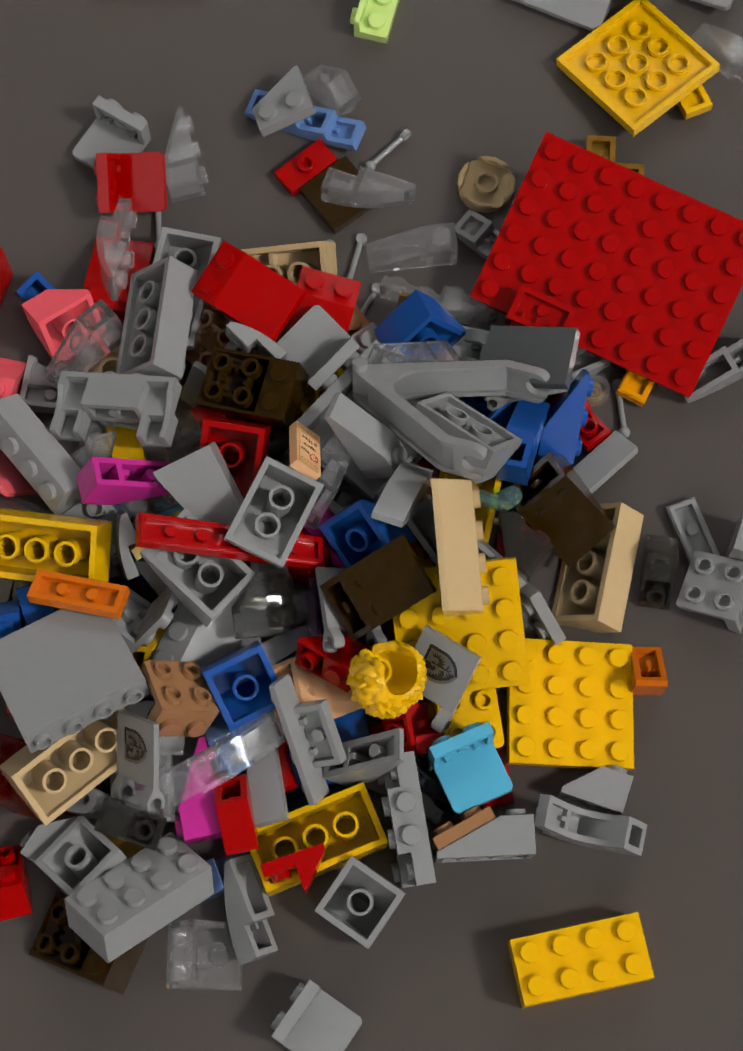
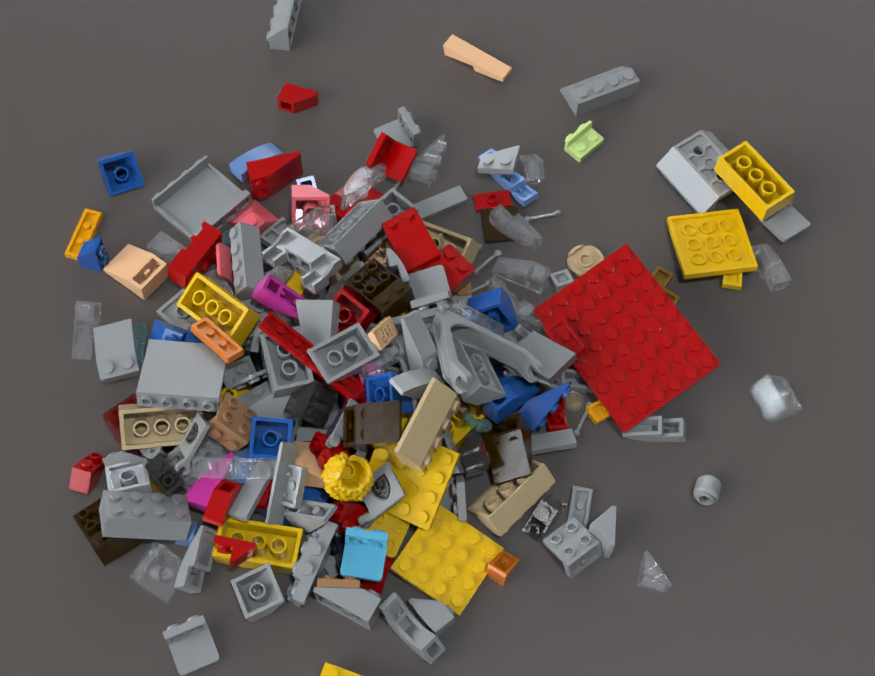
camera: 30 degrees right, 10 degrees down
(238, 207) = (441, 202): none -> light grey tile

